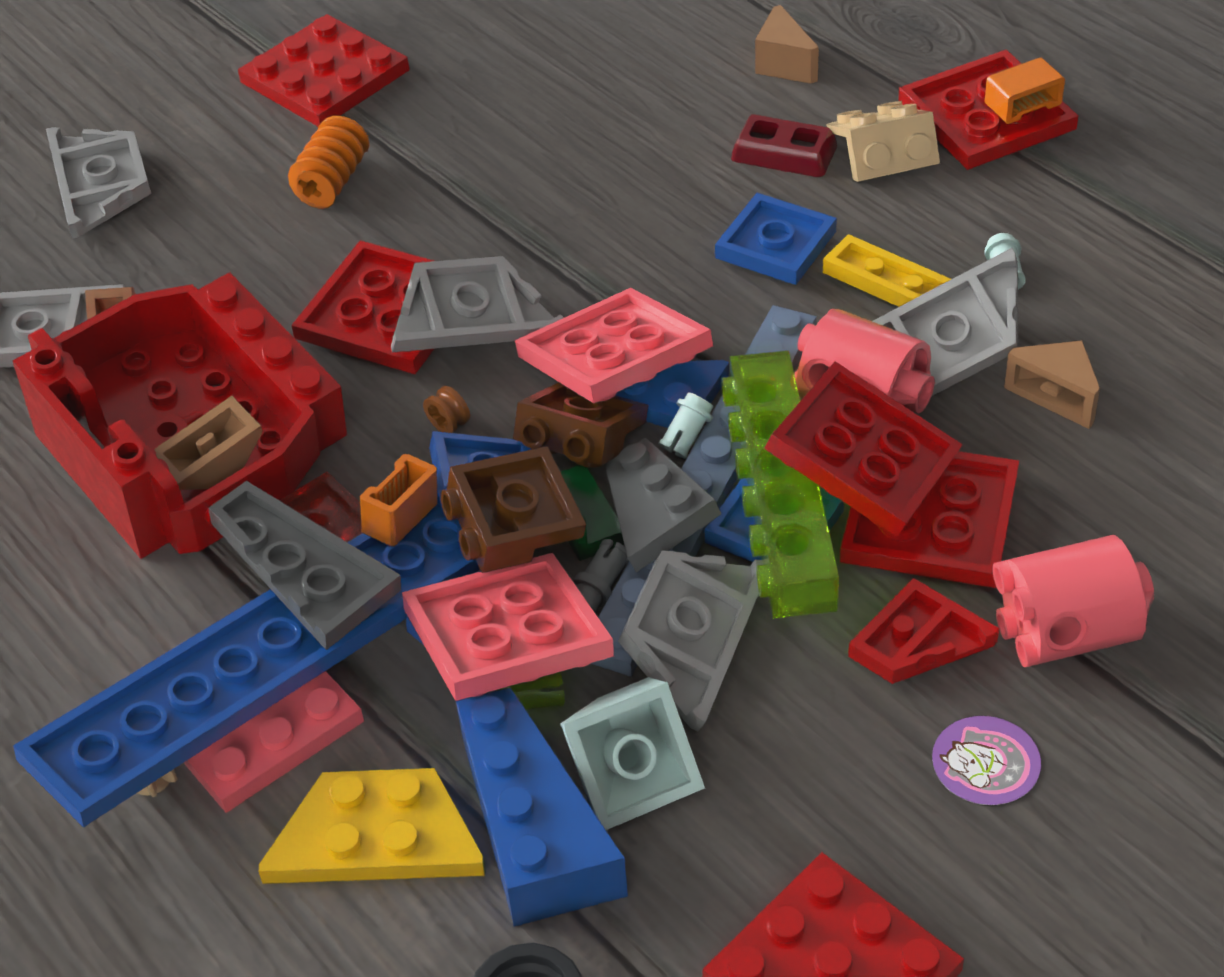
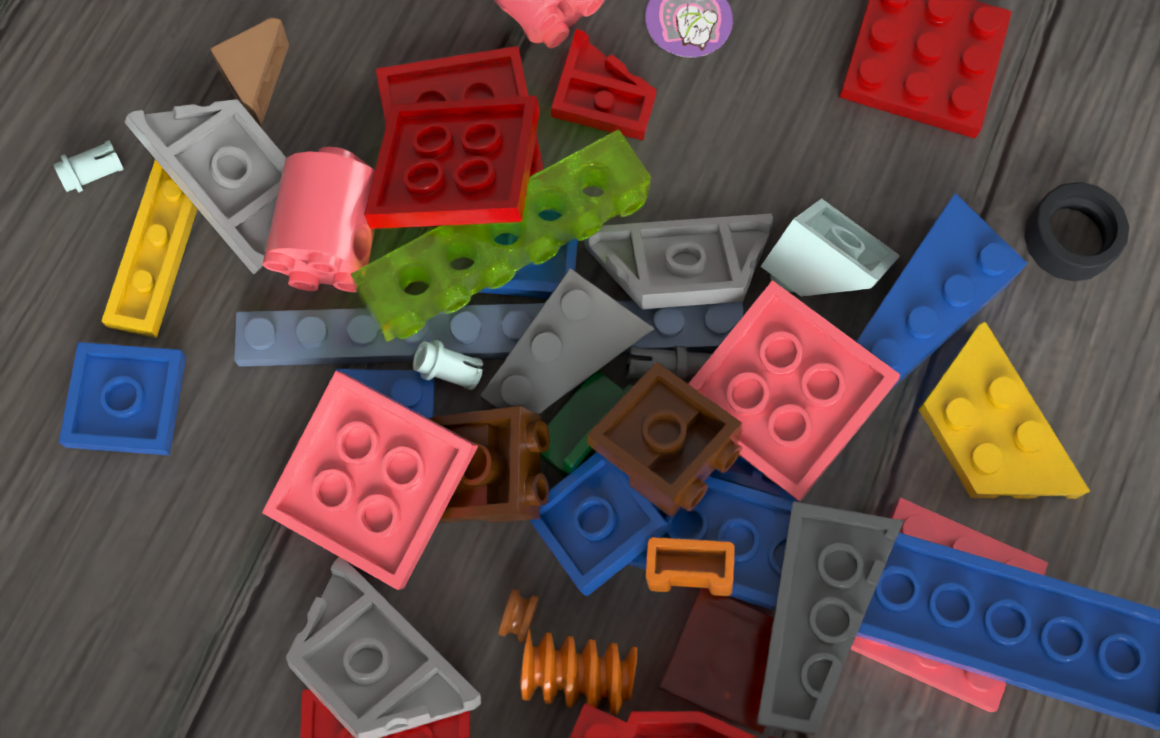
camera: 125 degrees left, 25 degrees up
(377, 422) = (577, 672): none -> orange piece

